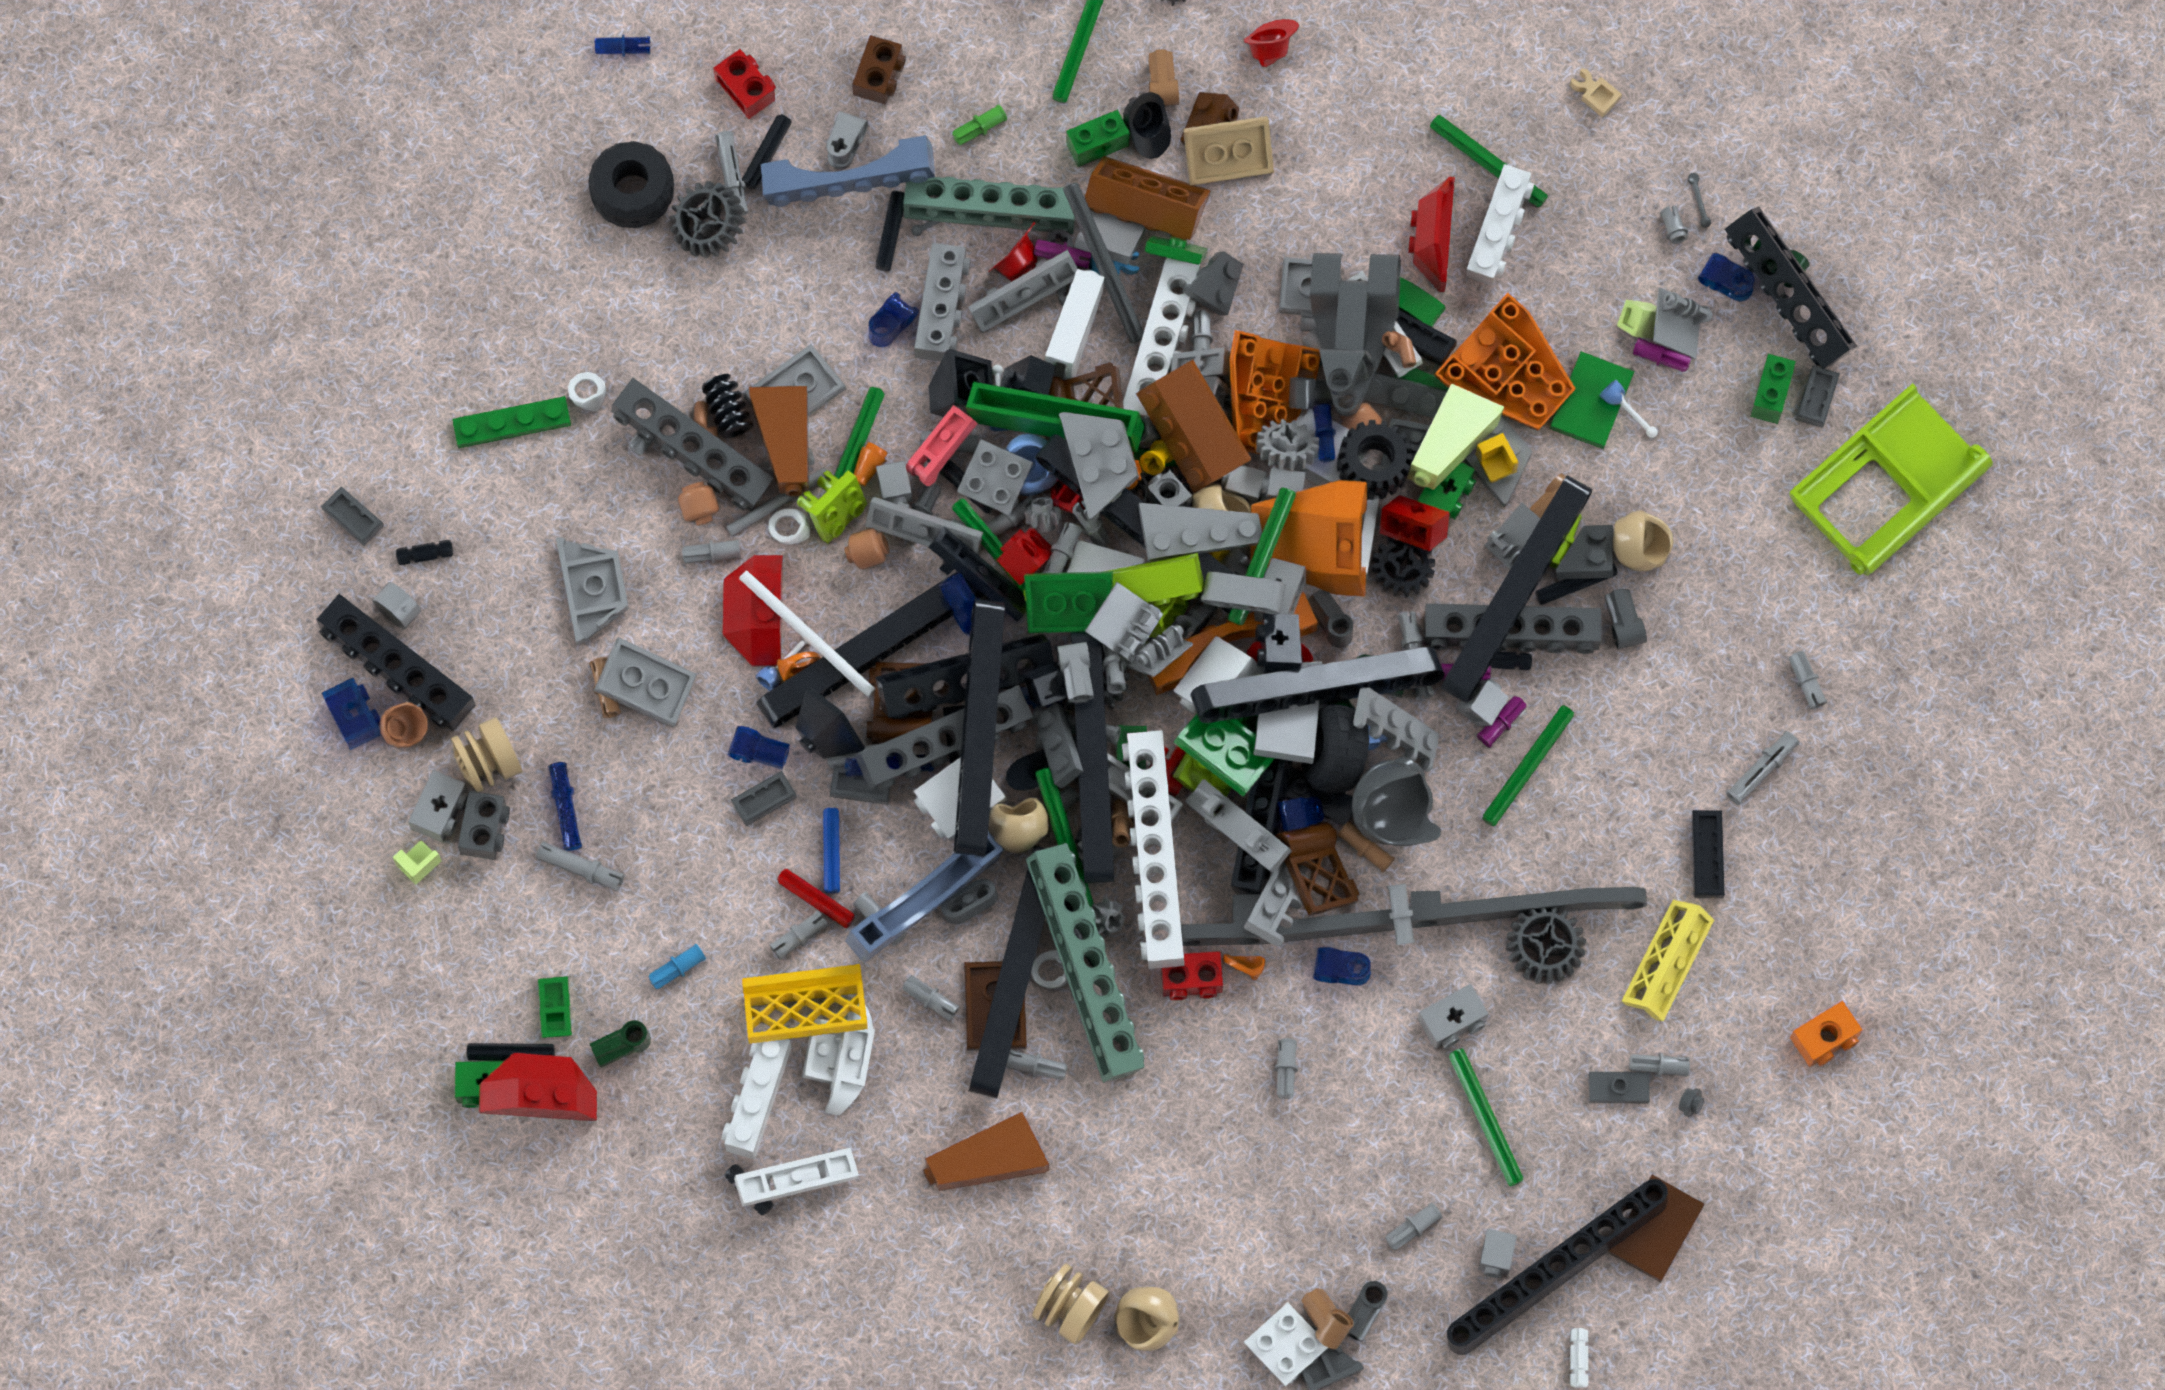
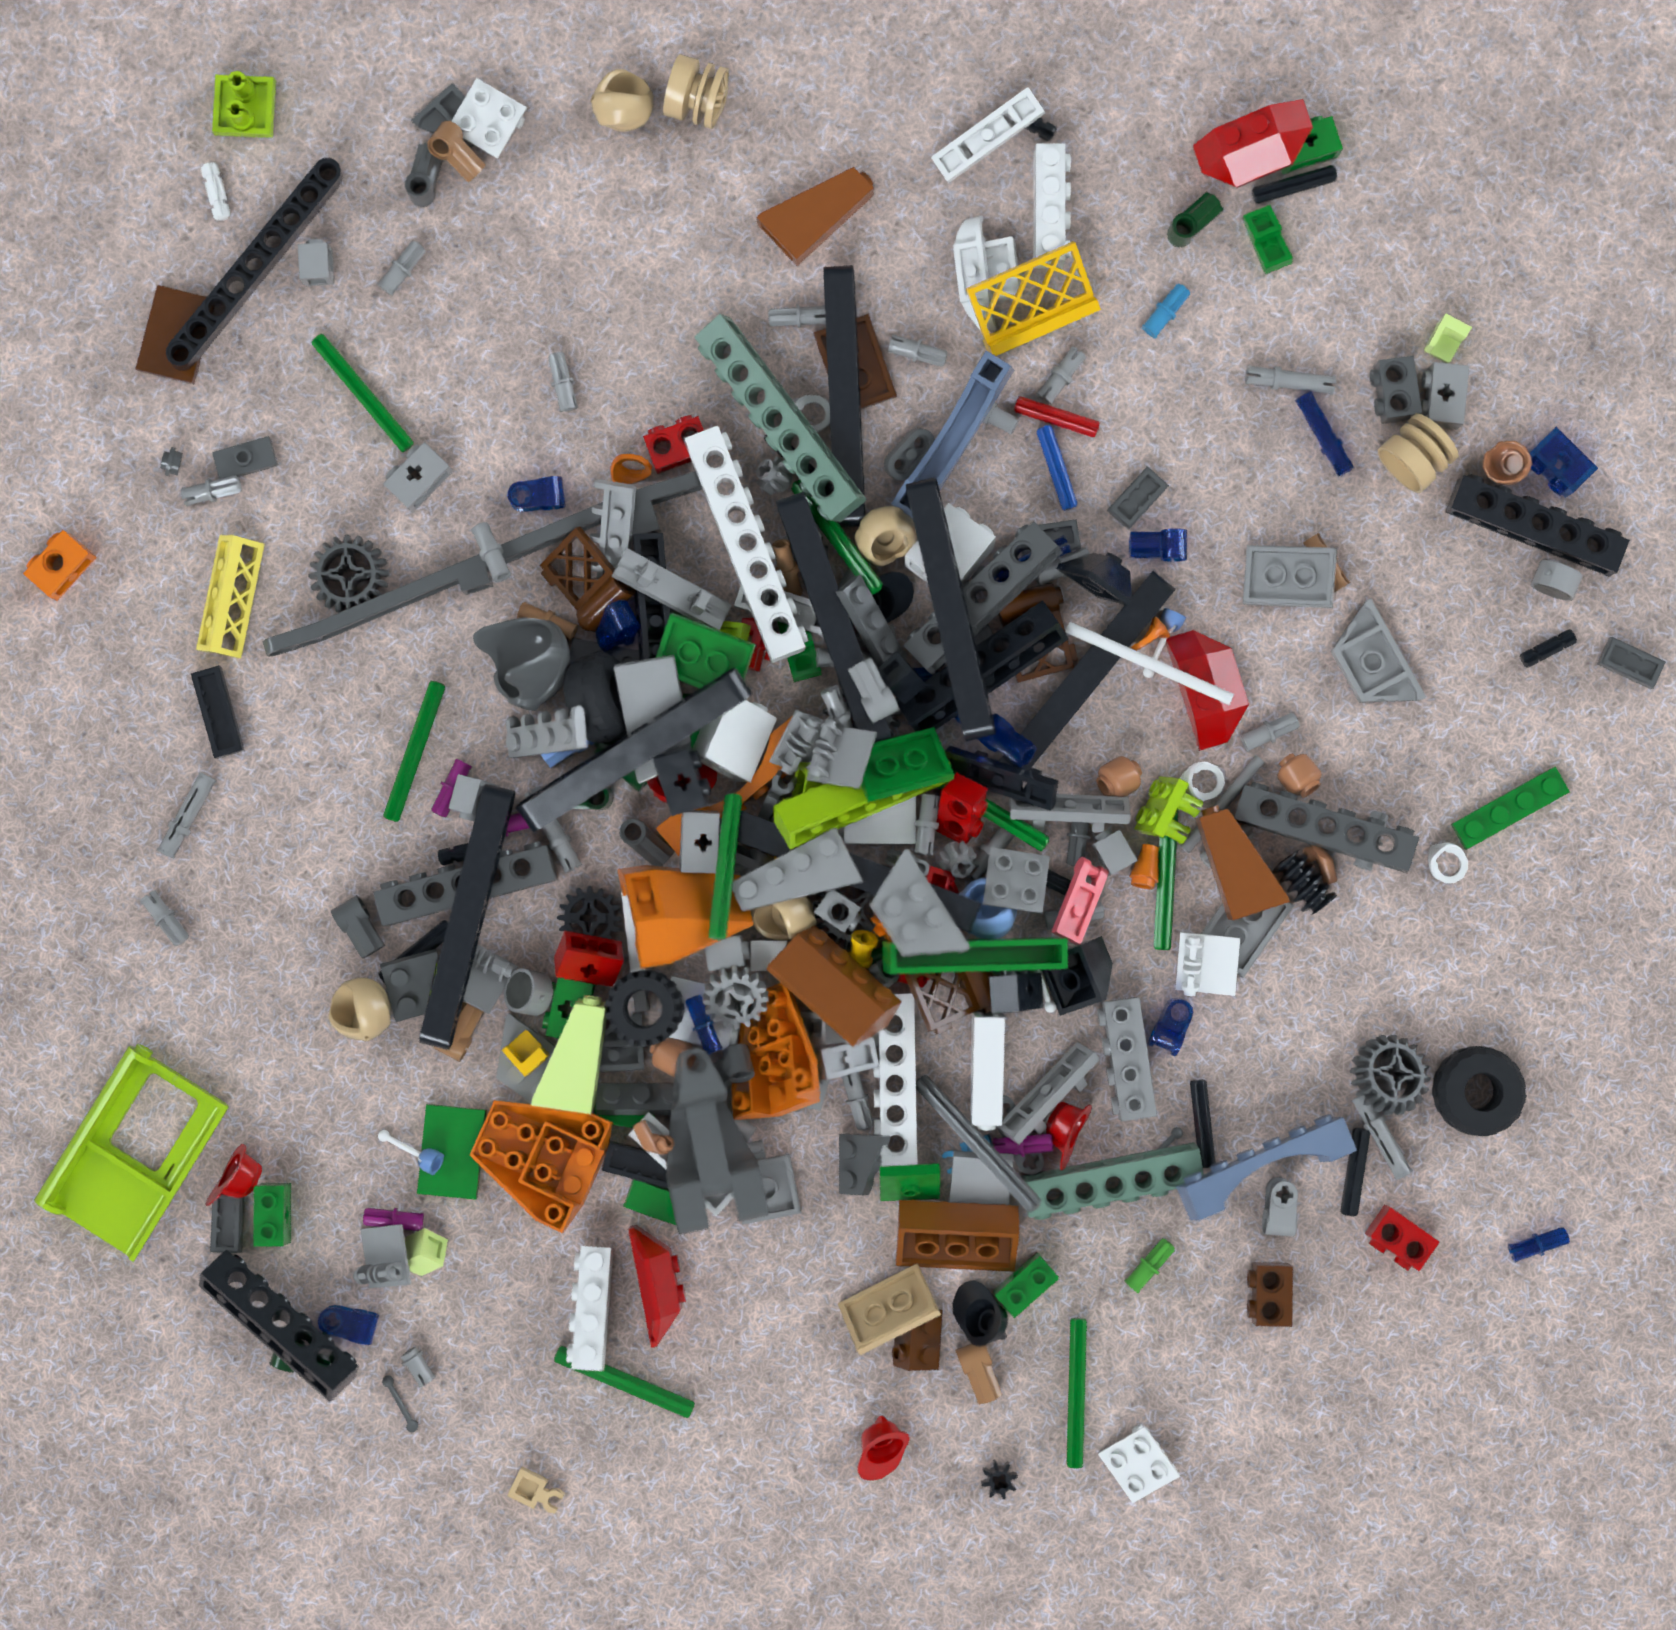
camera: 165 degrees right, 15 degrees up
(841, 362) = (1207, 964): none -> white hinge
(1243, 592) = (731, 817): light grey beam -> none
(1480, 513) = (528, 992): none -> light grey piece
(1799, 429) = (238, 1176): none -> red piece

